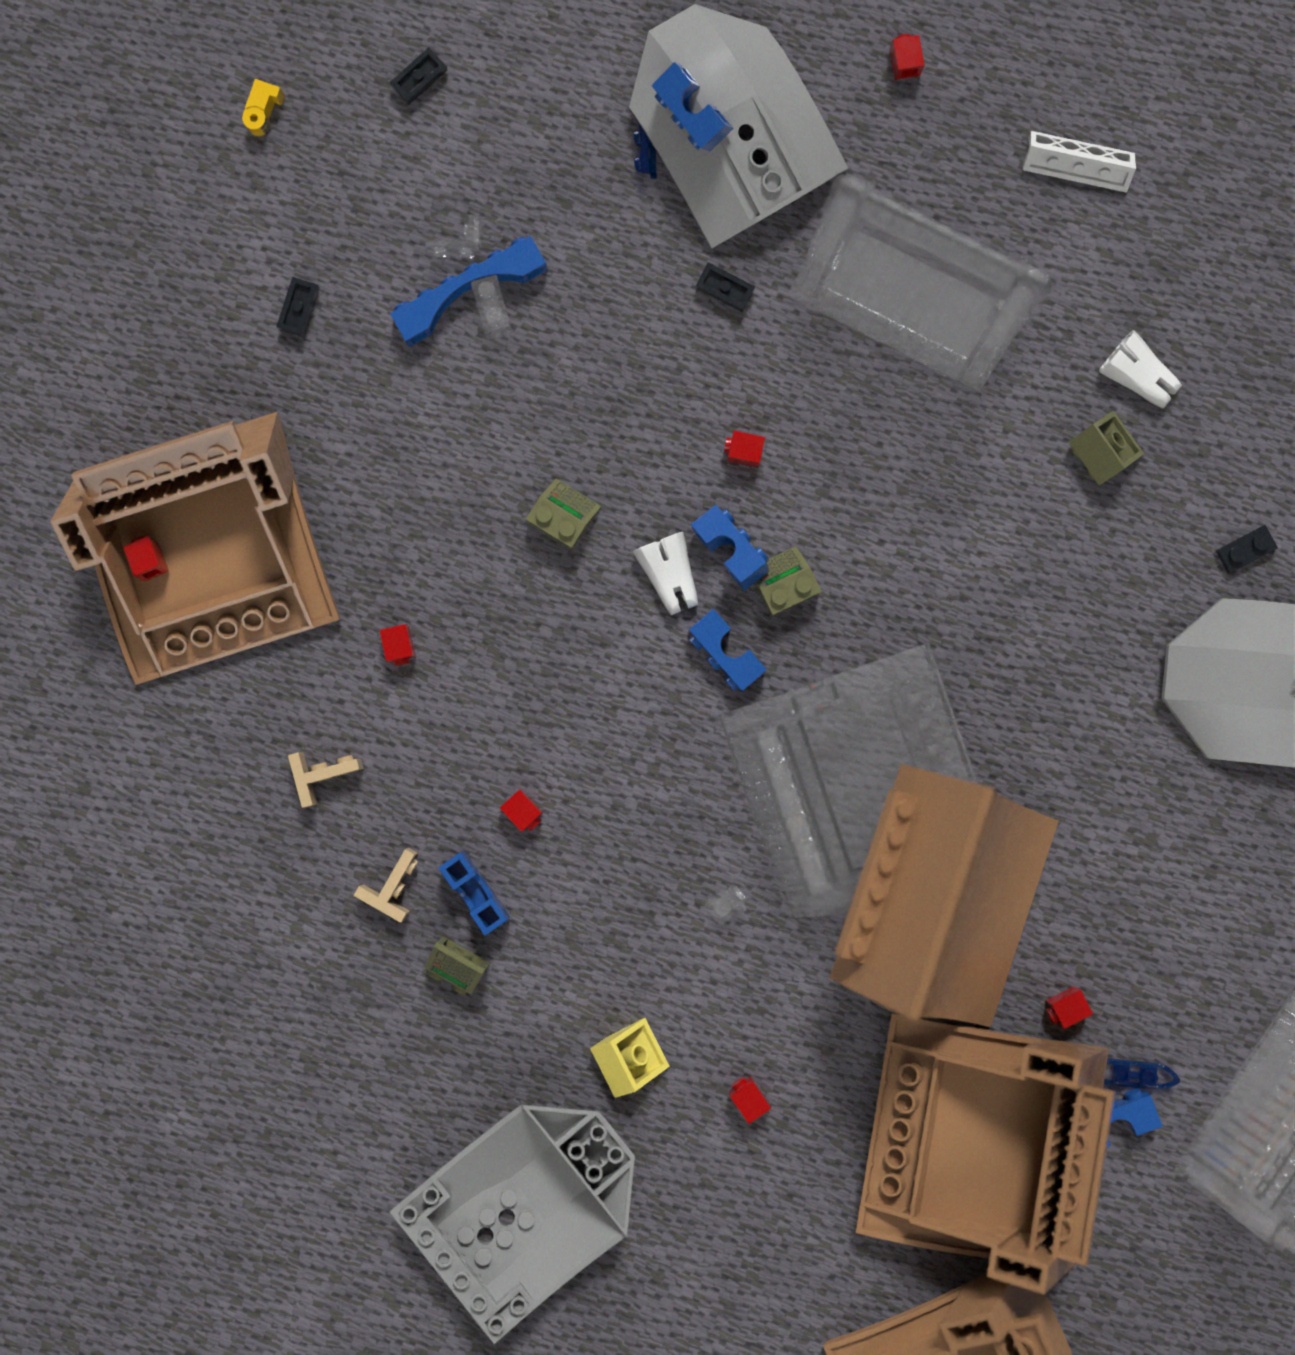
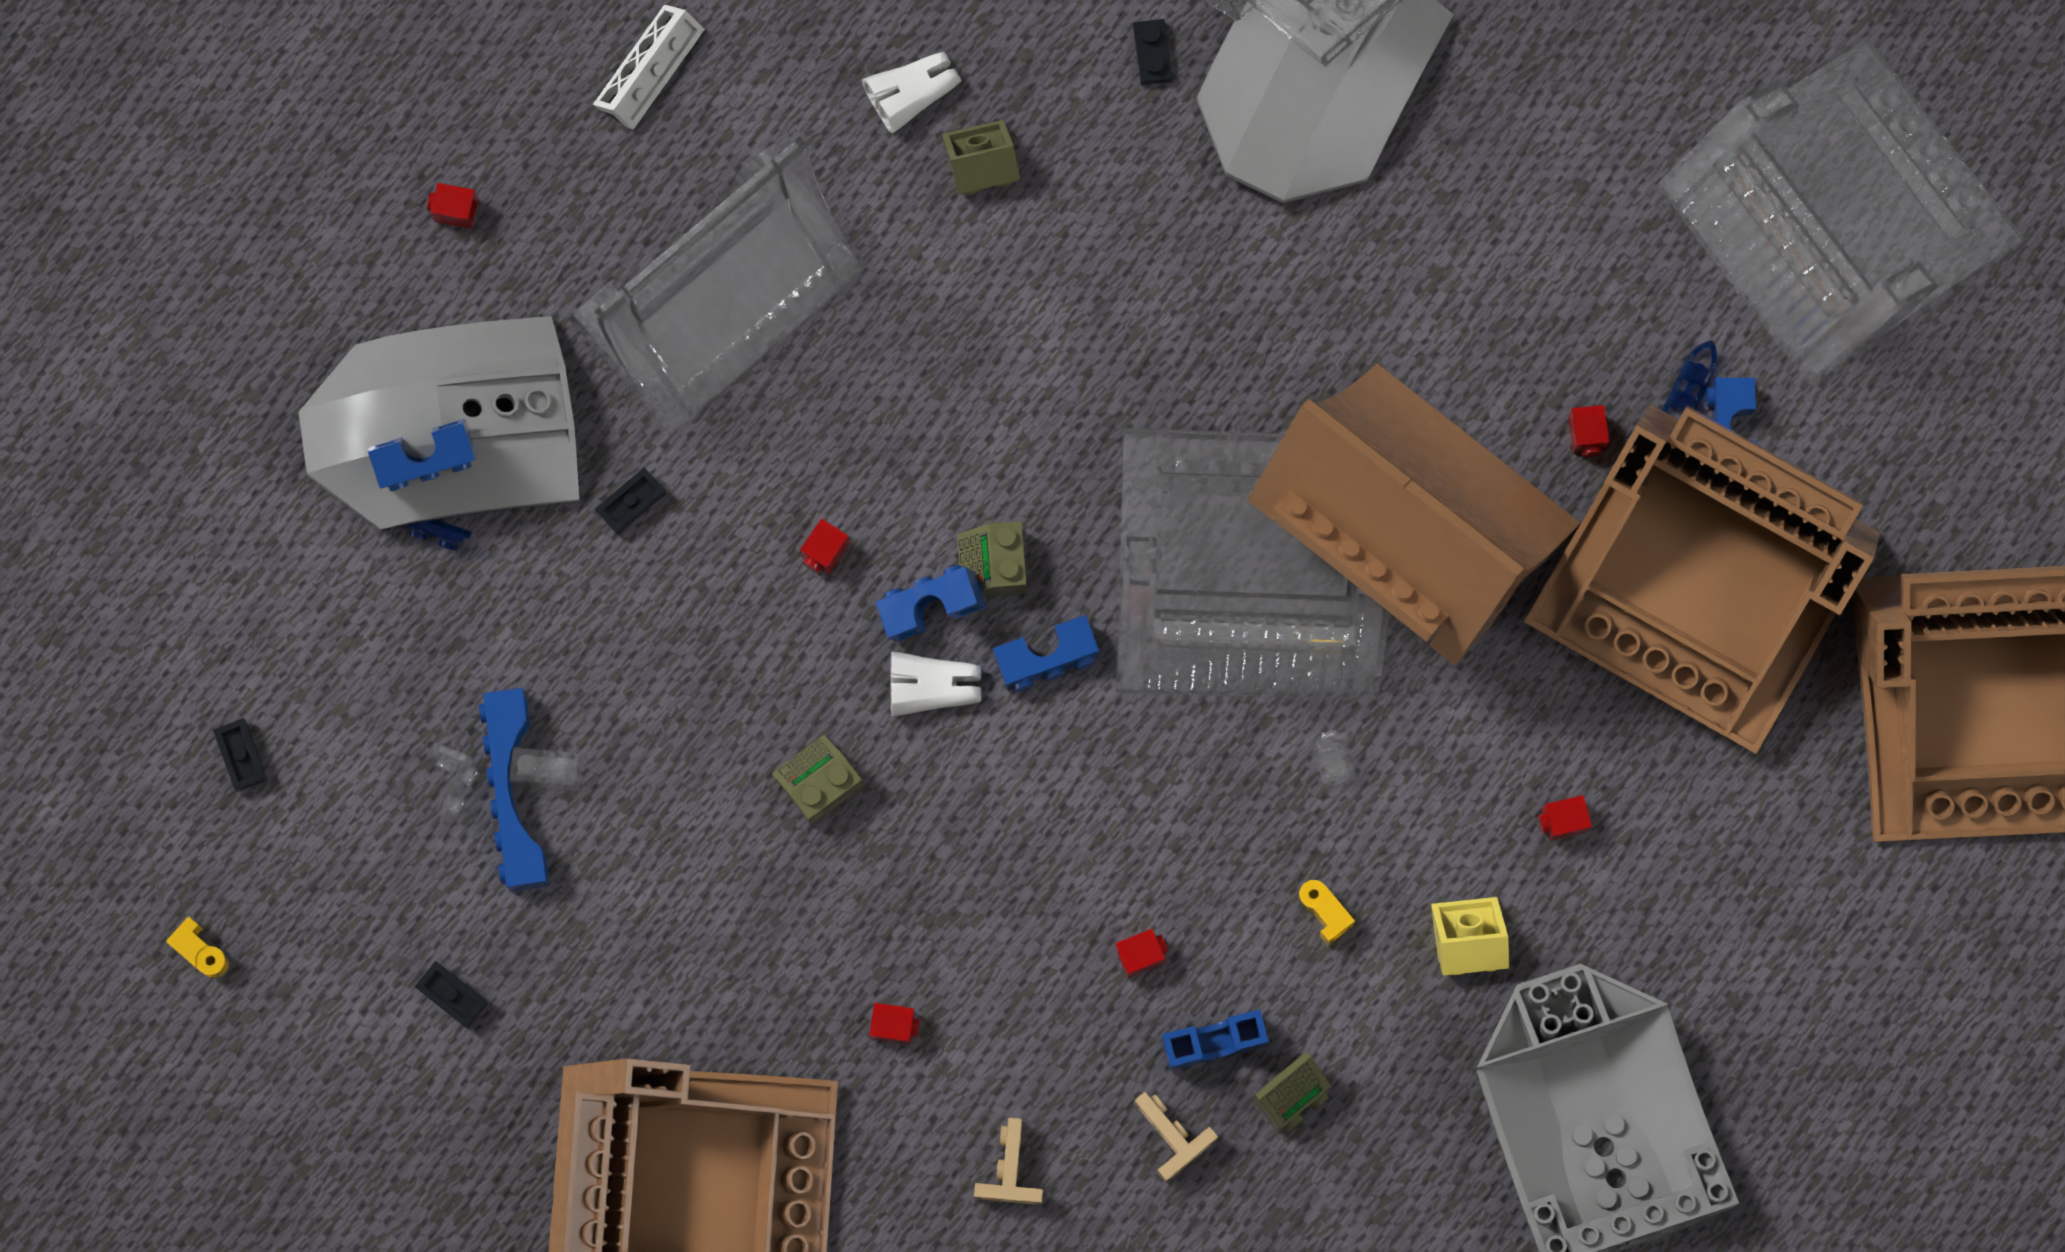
camera: 70 degrees left, 10 degrees down
(614, 930) = (1319, 900): none -> yellow leg

